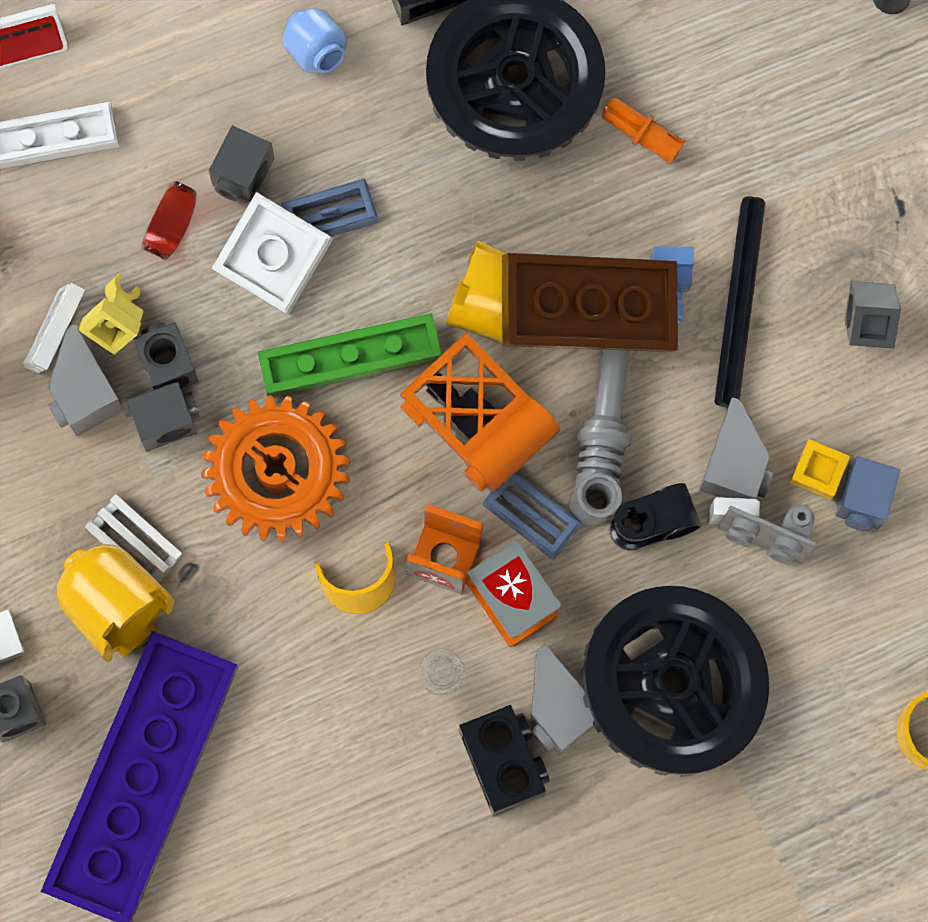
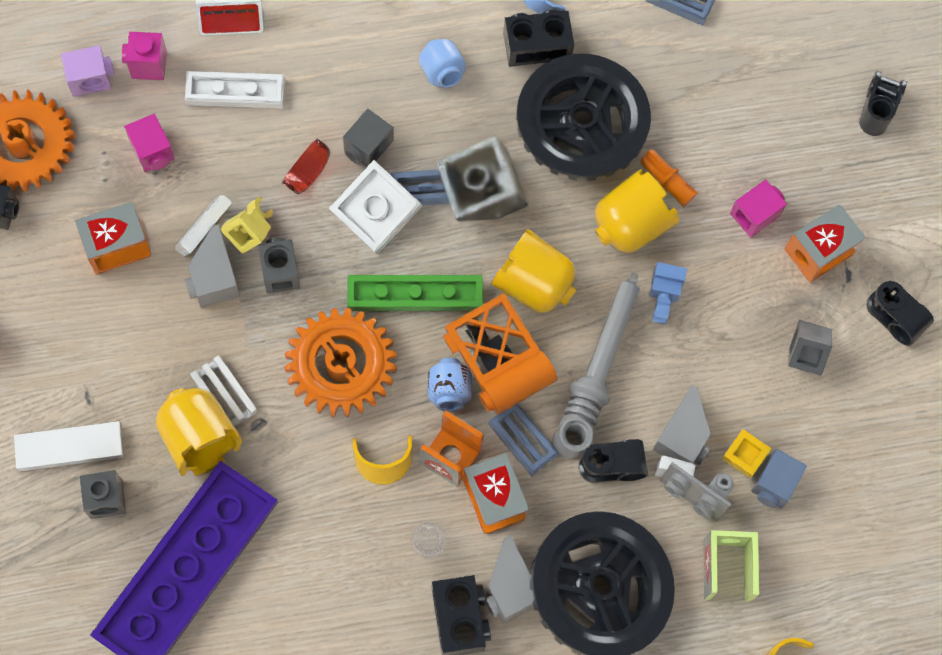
camera: 10 degrees right, 5 degrees down
(163, 416) = (267, 306): dark grey brick -> none
(403, 190) = (482, 182): none -> clear smoke slope
(422, 466) = (449, 384): none -> light blue head
(589, 303) = (600, 291): reddish brown plate -> none
(609, 189) = (634, 214): none -> yellow cylinder
(740, 300) = (713, 316): black axle -> none
(768, 144) = (758, 208): none -> dark pink brick
(855, 609) = (751, 560): none -> yellowish green piece
(862, 173) = (824, 243): none -> piece

